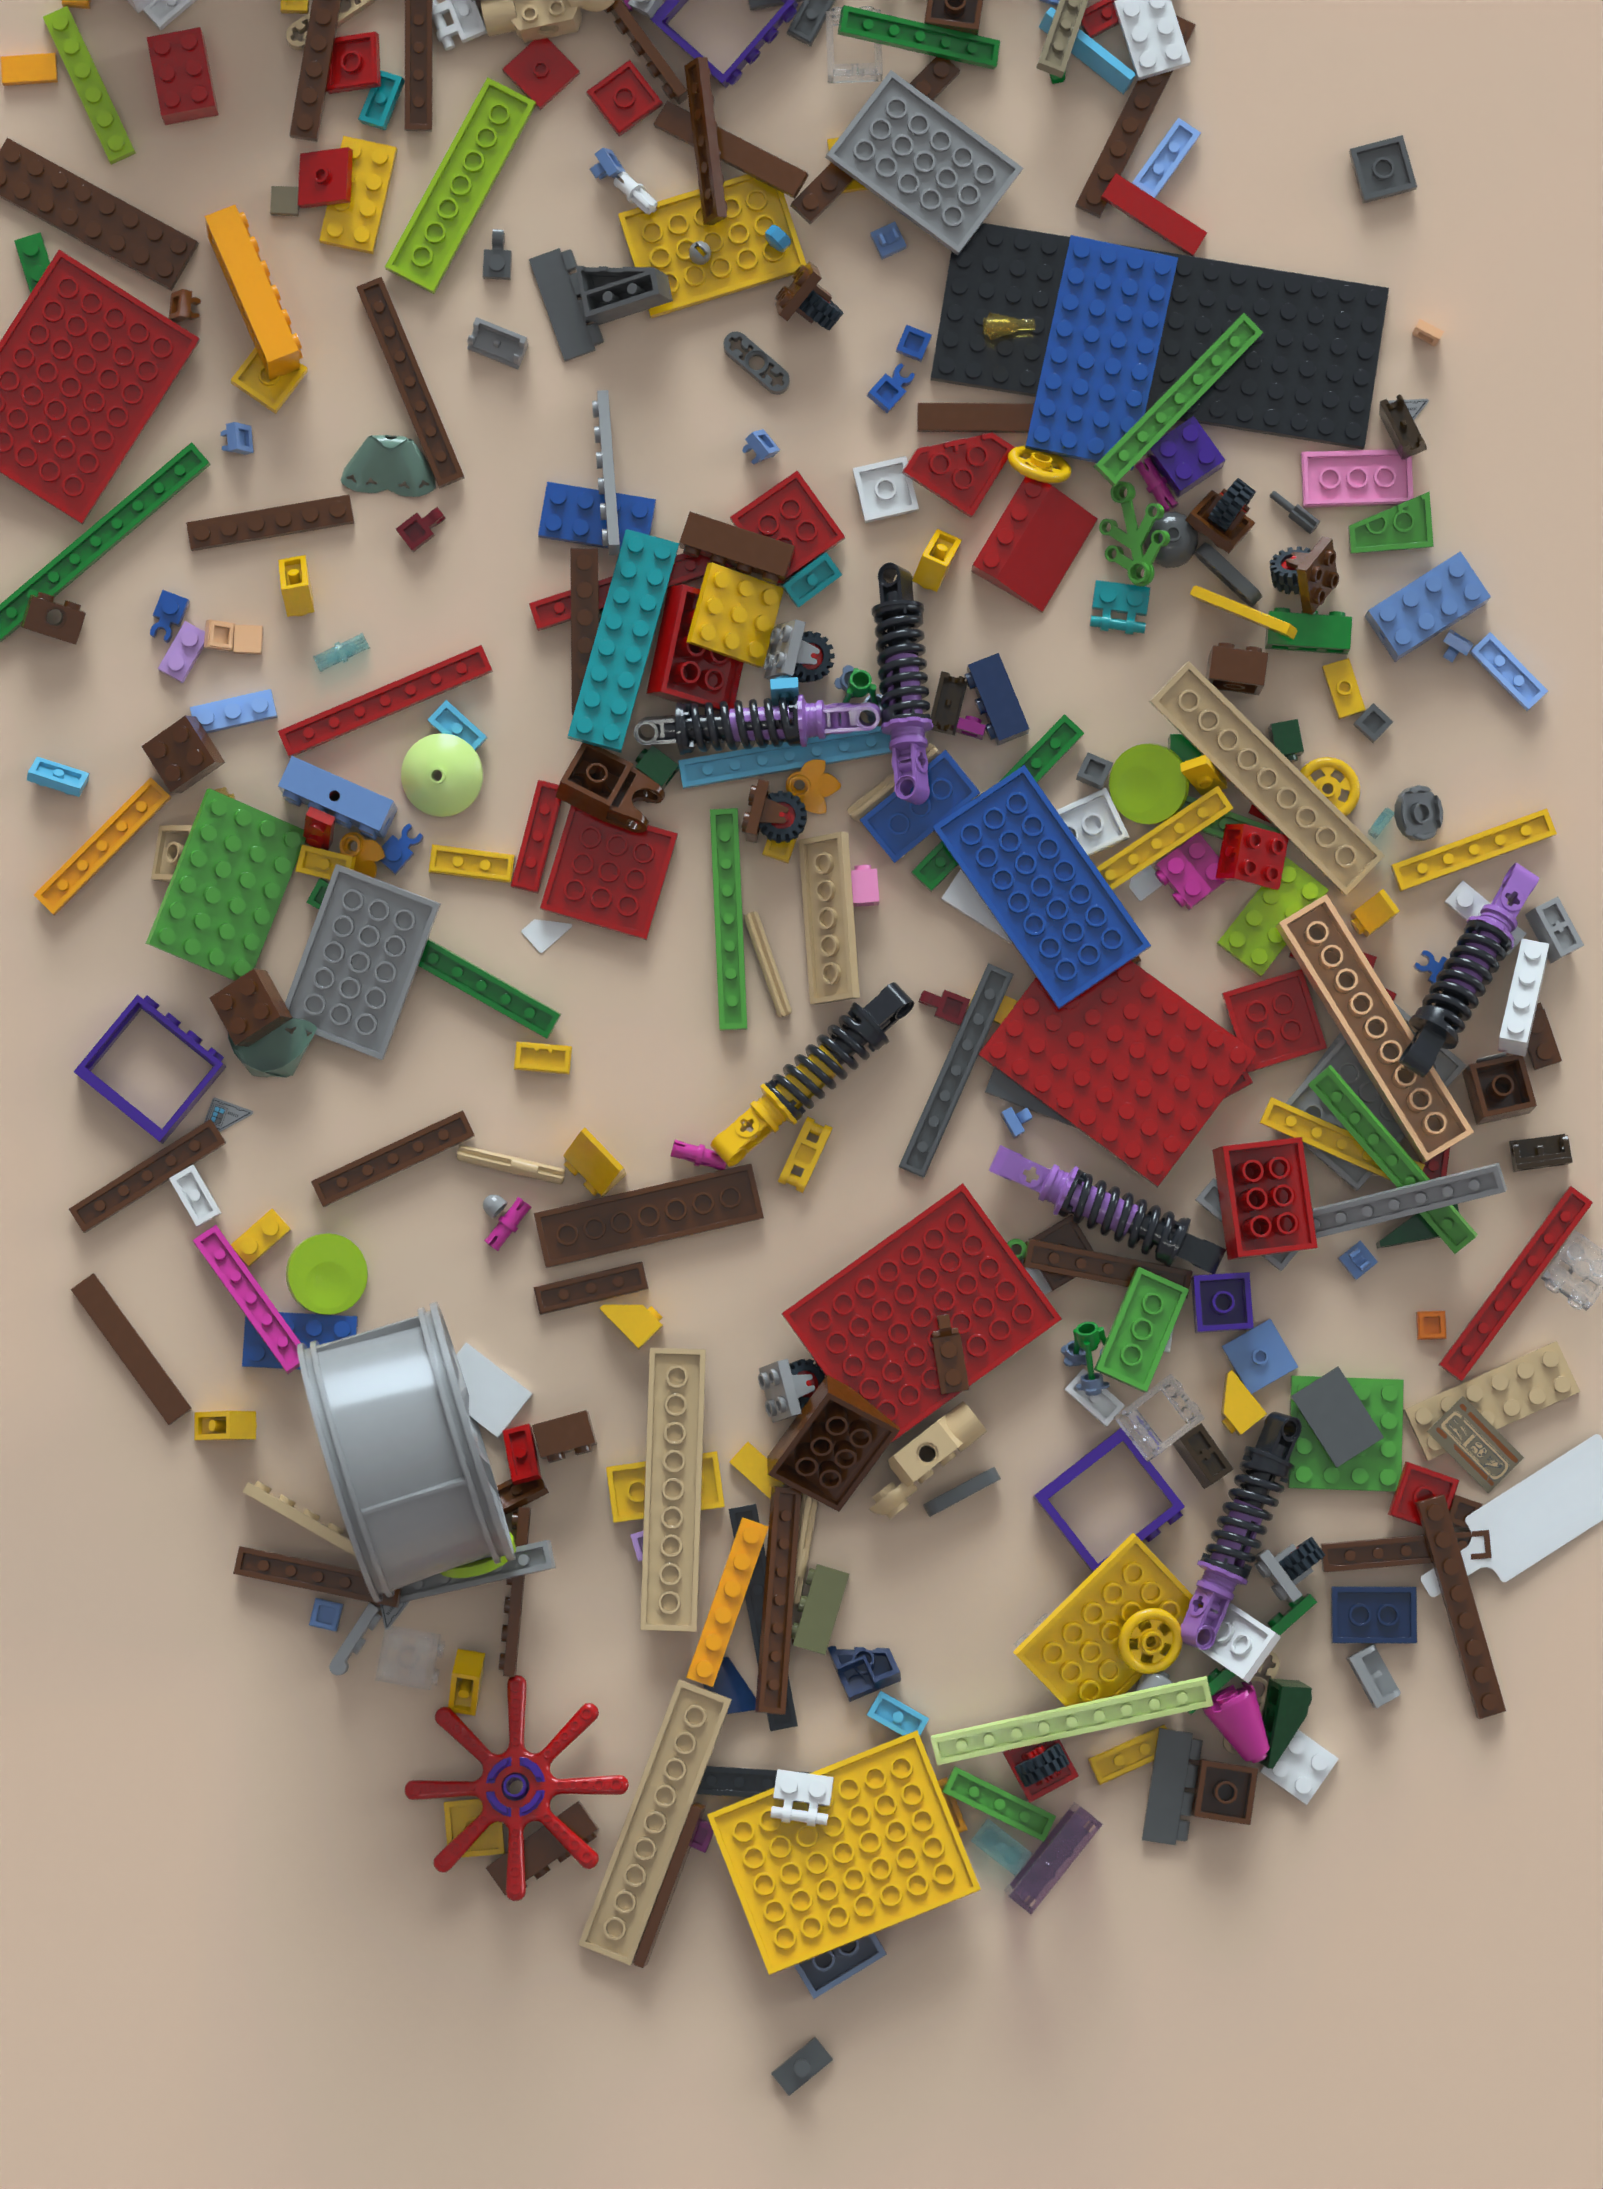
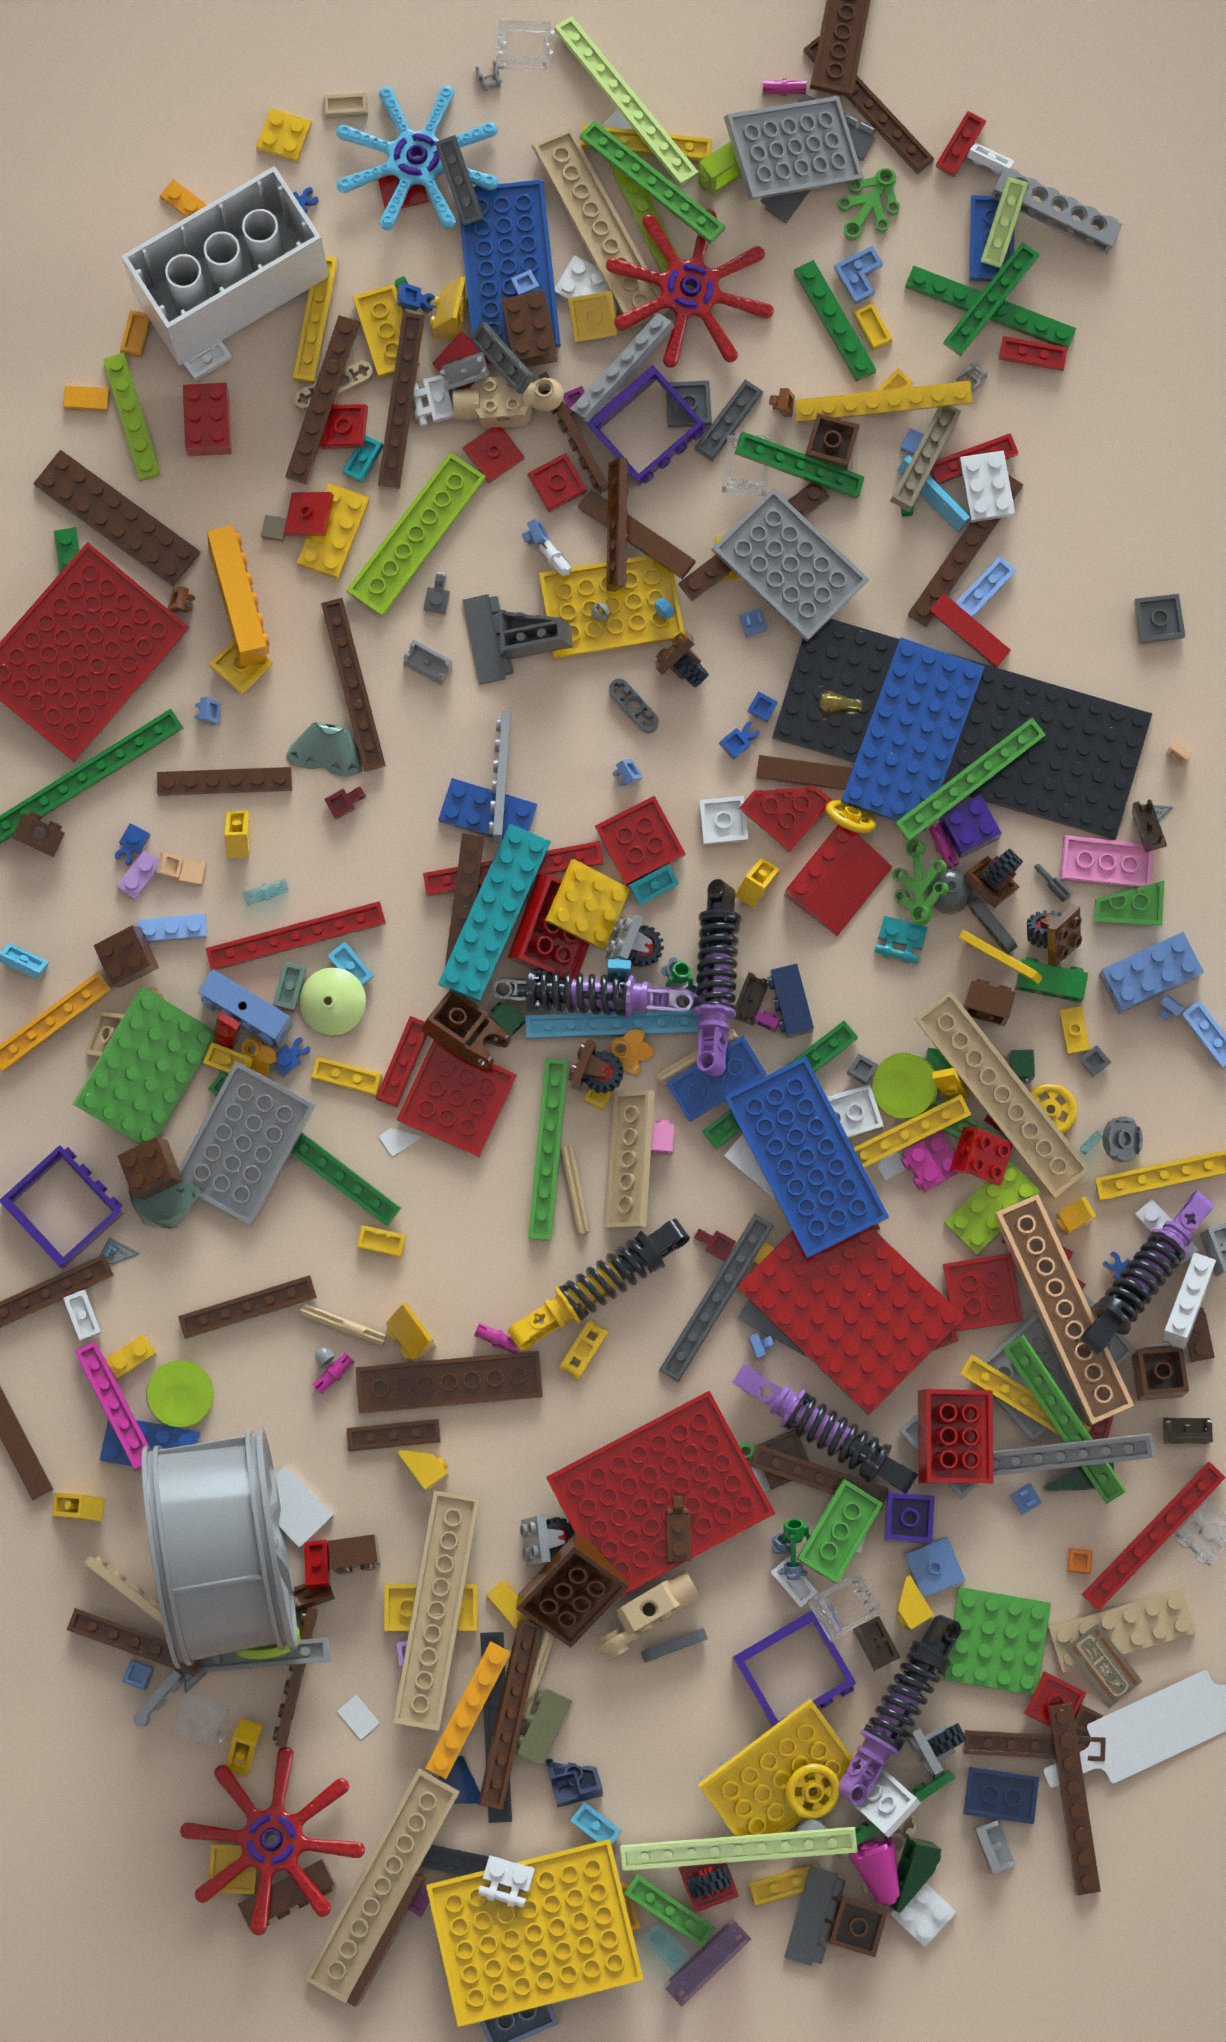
camera: 10 degrees right, 5 degrees down
(386, 763) = (289, 986): none -> sand green plate
(597, 1628) = (358, 1717): none -> white sticker
(736, 547) = (596, 850): reddish brown brick -> none
(1337, 1417) = (991, 1626): dark grey tile -> none

